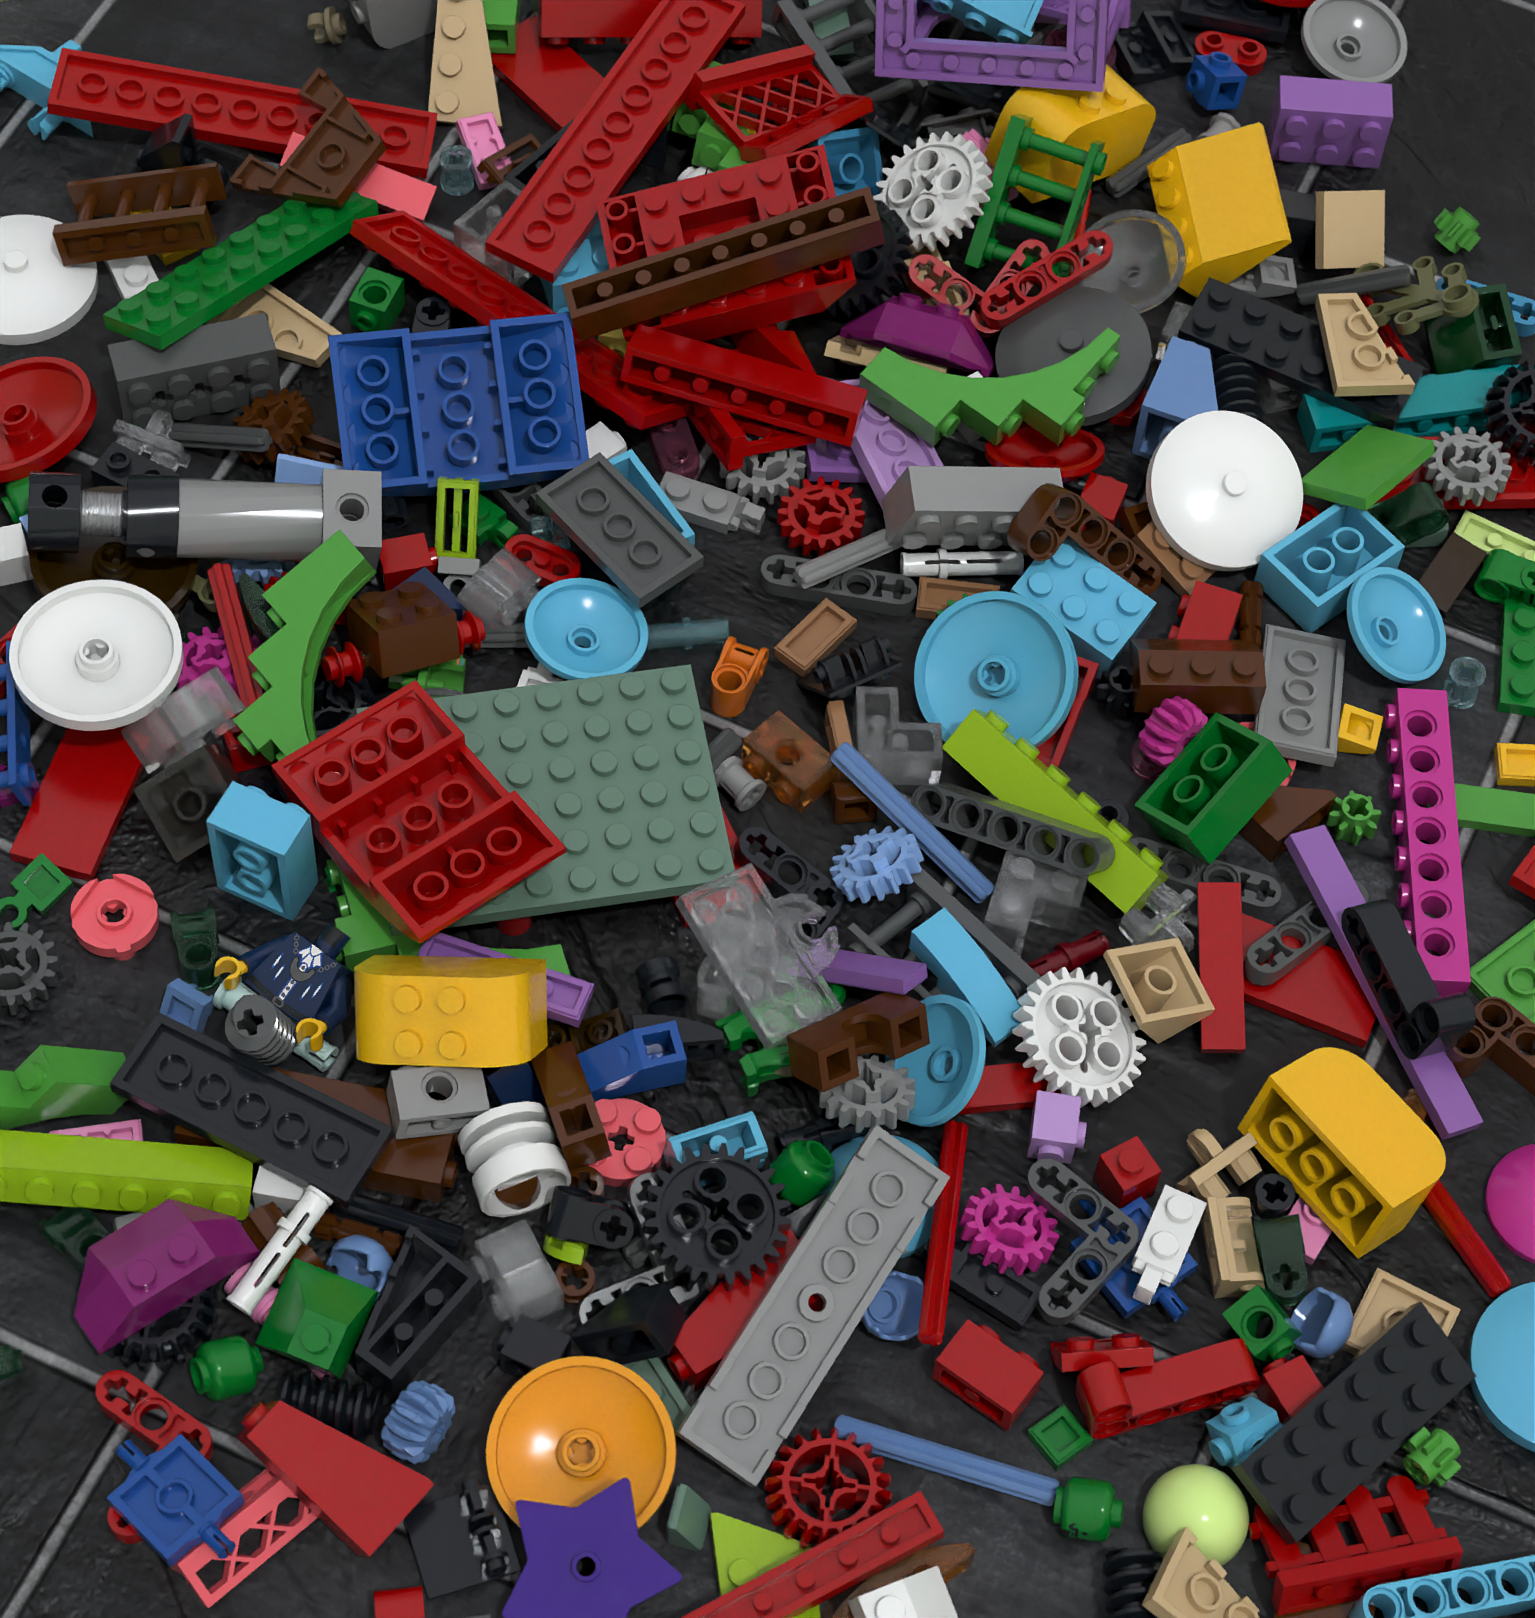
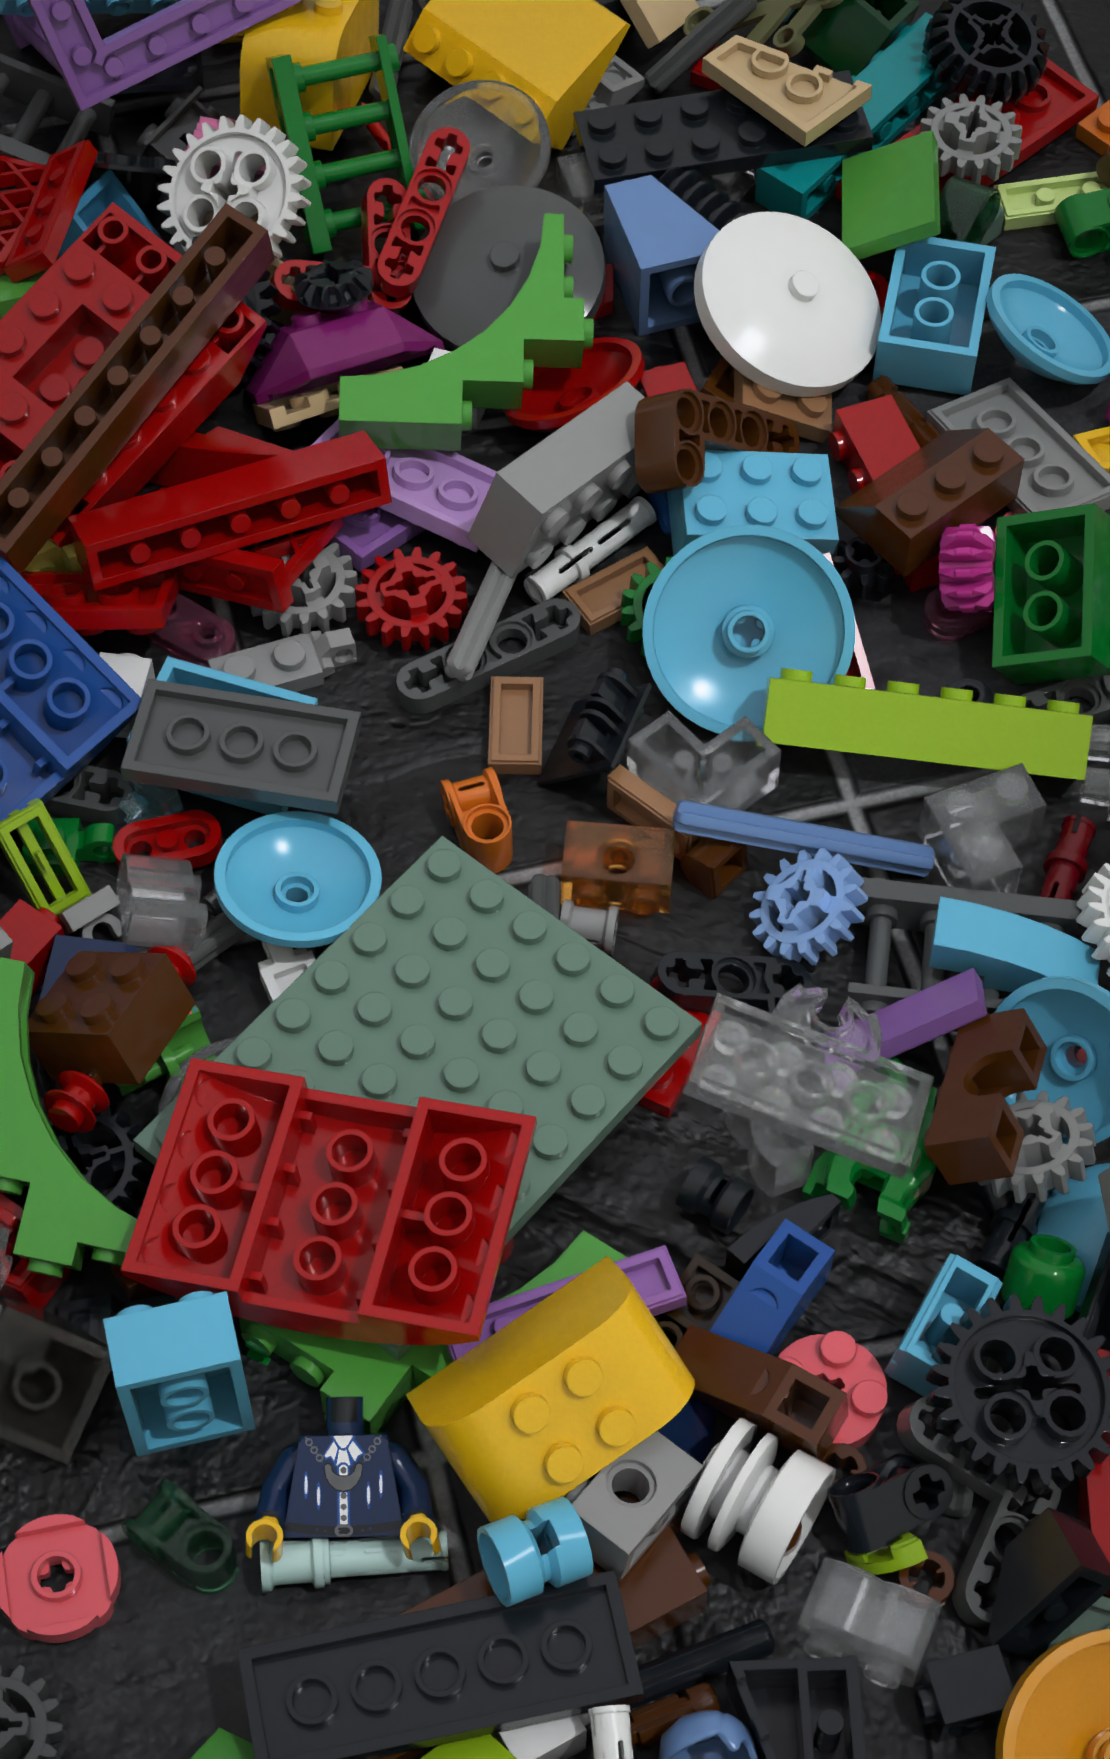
camera: 35 degrees left, 0 degrees up
(187, 1004) = (238, 1618): medium blue tile -> none
(260, 1030) = (395, 1574): dark grey piece -> none
(336, 1076) = (513, 1556): none -> medium azure wheel
(687, 633) = (390, 808): clear light blue pin -> none
(955, 289) = (318, 290): none -> black gear
(1031, 828) = (937, 776): dark grey beam -> none
(1451, 571) = (1040, 246): dark brown slope -> none

